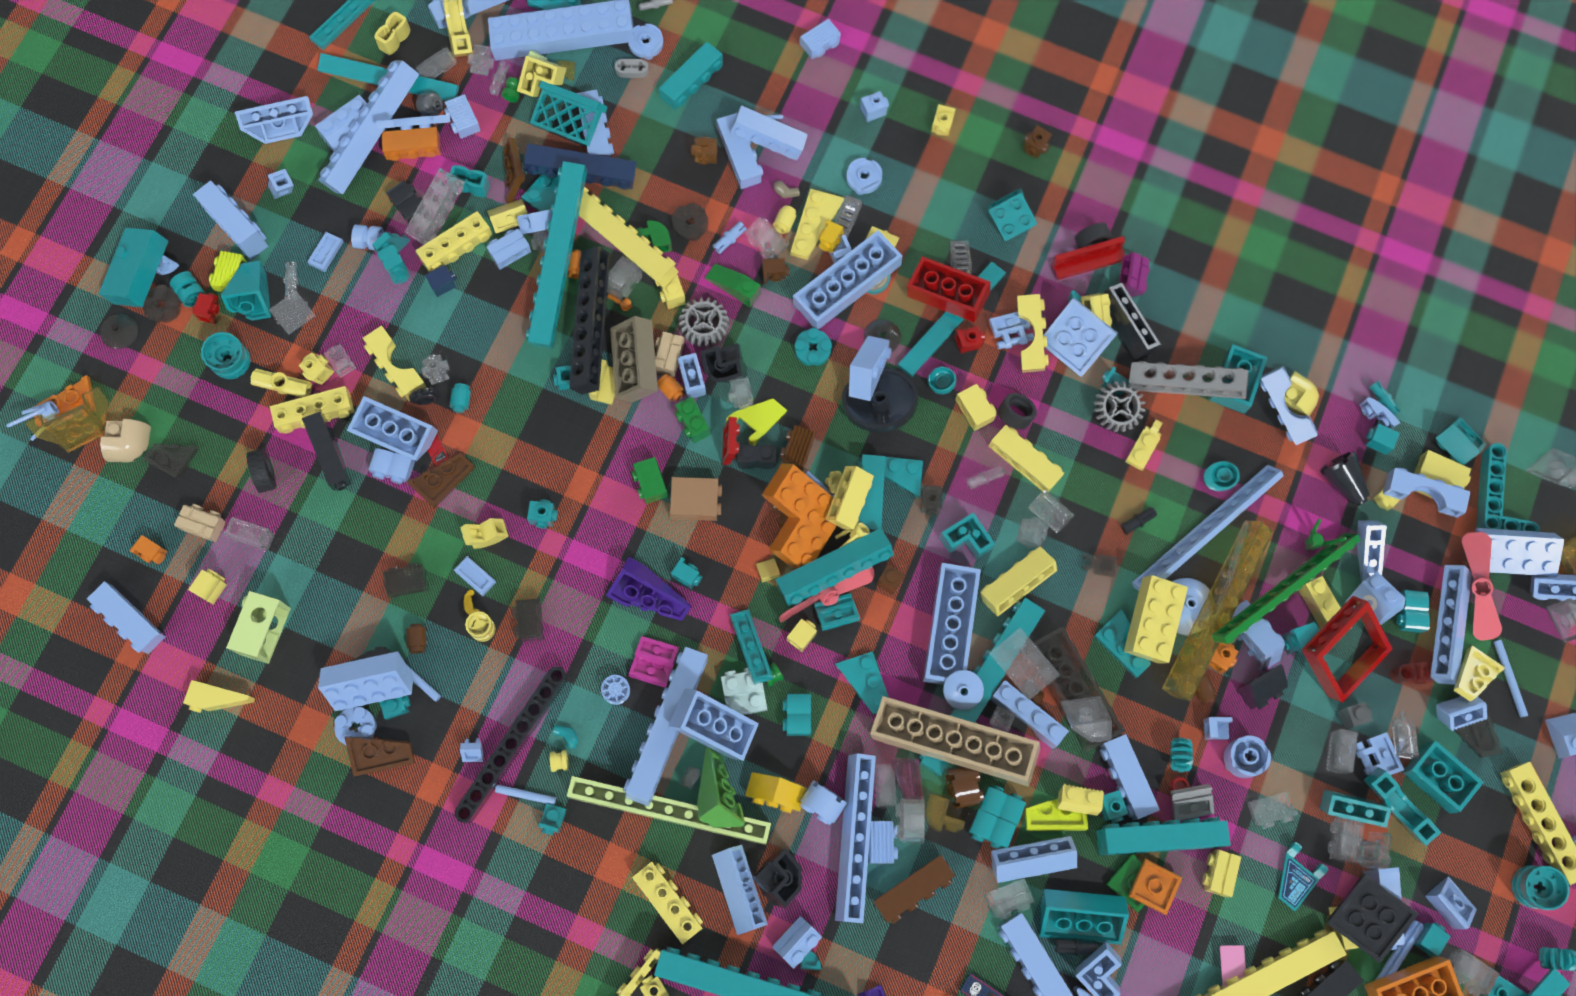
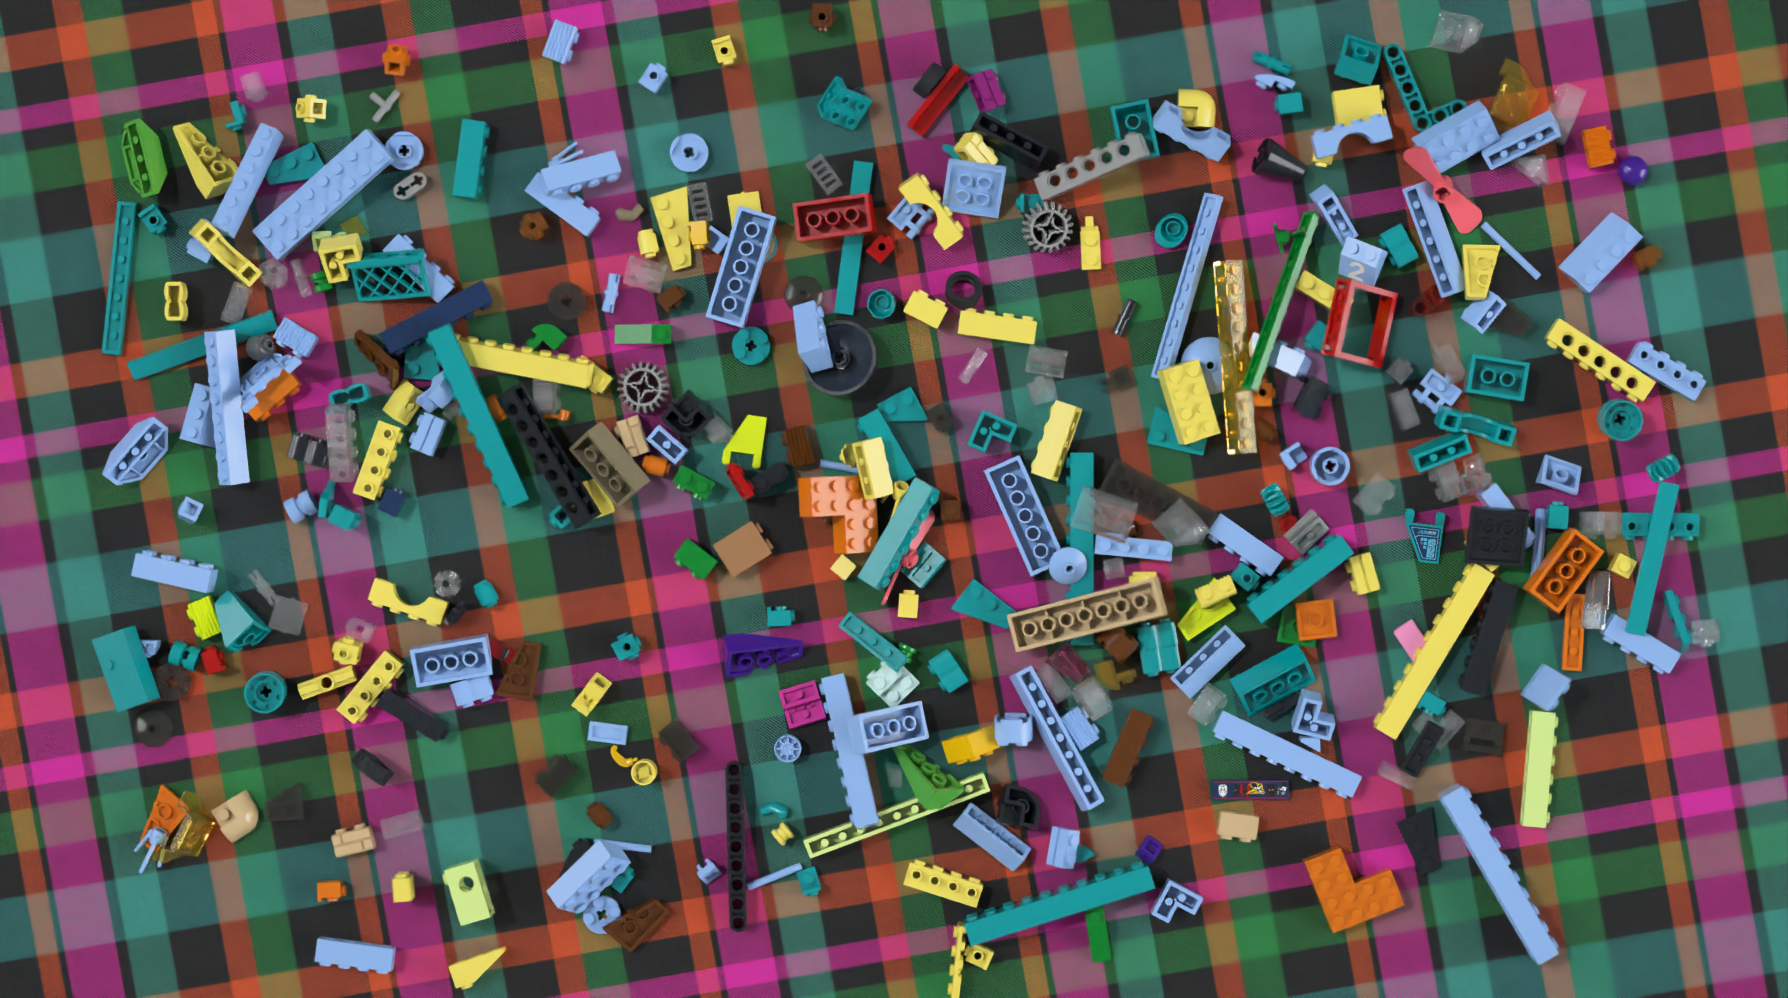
camera: 30 degrees left, 15 degrees up
(325, 251) = (273, 542): light blue plate -> none

